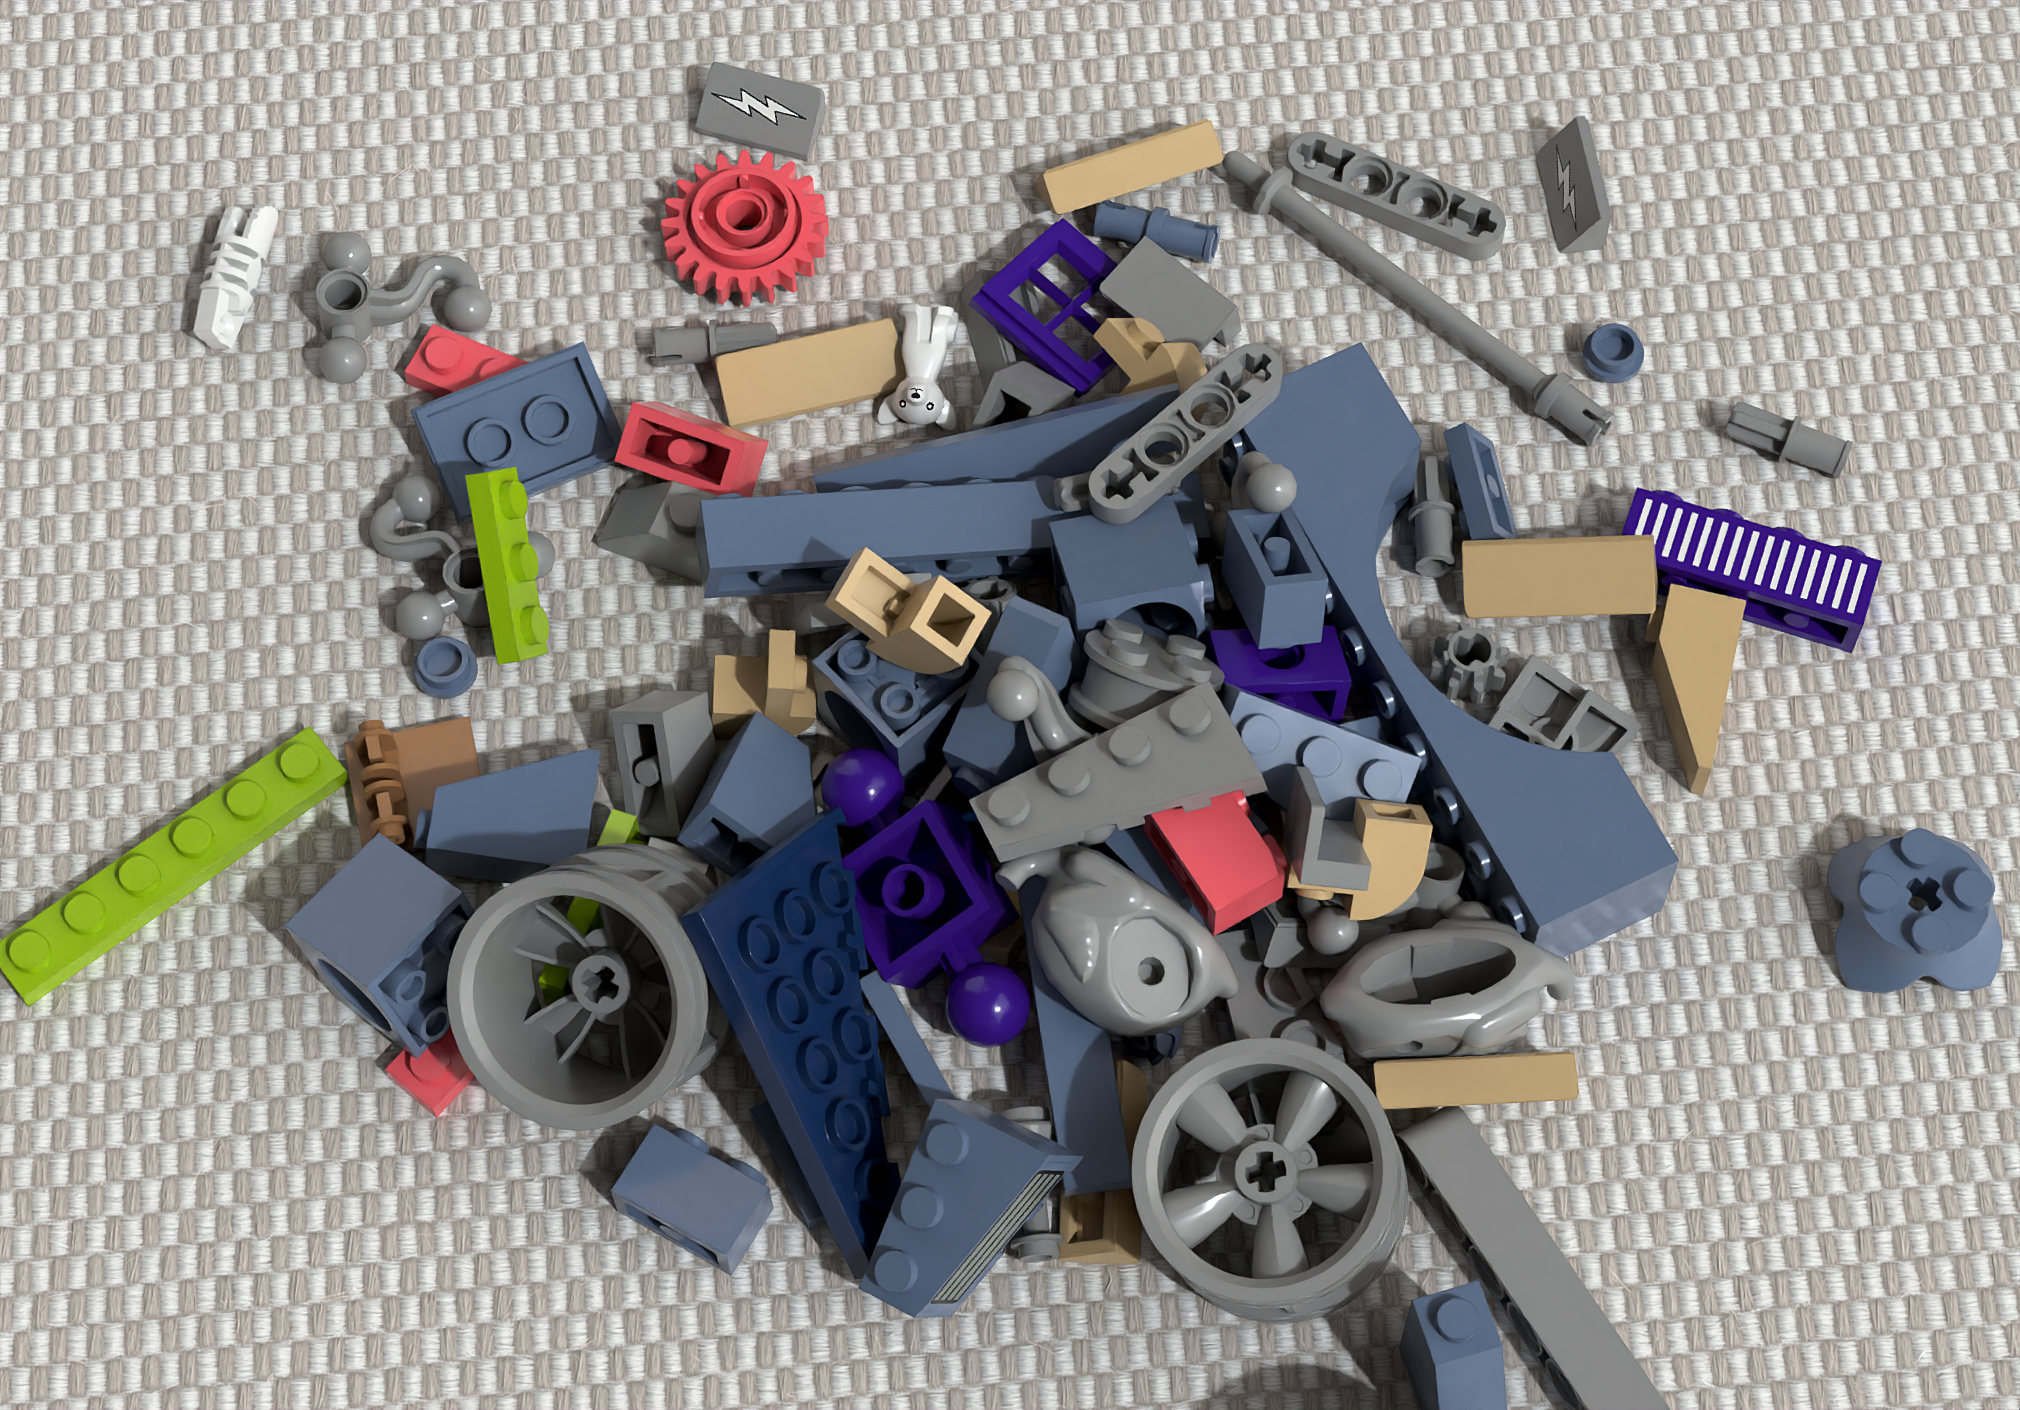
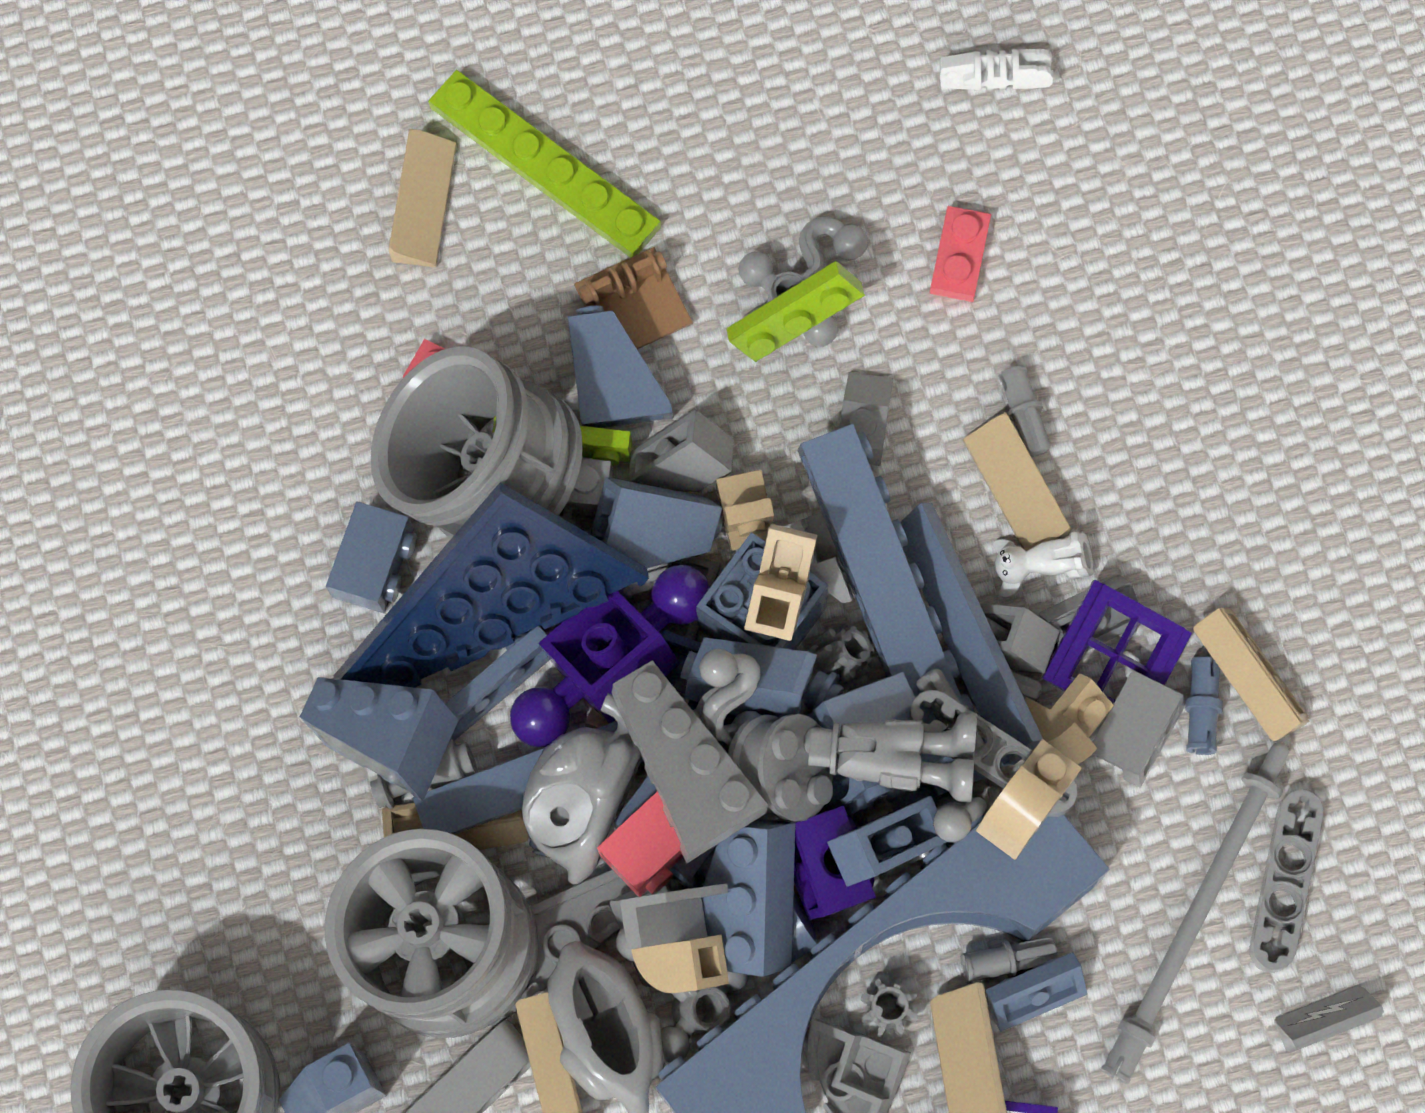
camera: 80 degrees right, 10 degrees up
(169, 1037) = (422, 199): none -> tan slope
(347, 258) = (1027, 141): light grey piece -> none
(386, 941) = (497, 308): sand blue brick -> none
(445, 668) = (725, 297): sand blue plate -> none
(537, 417) = (917, 297): sand blue tile -> none
(690, 449) = (923, 414): coral brick -> none
(761, 111) = (1231, 395): light grey slope -> none
(785, 234) = (1117, 433): coral gear -> none
(1172, 529) = (893, 753): none -> light grey piece
(1270, 394) = (1028, 799): none -> tan brick
(1613, 353) = (1186, 1074): sand blue plate -> none

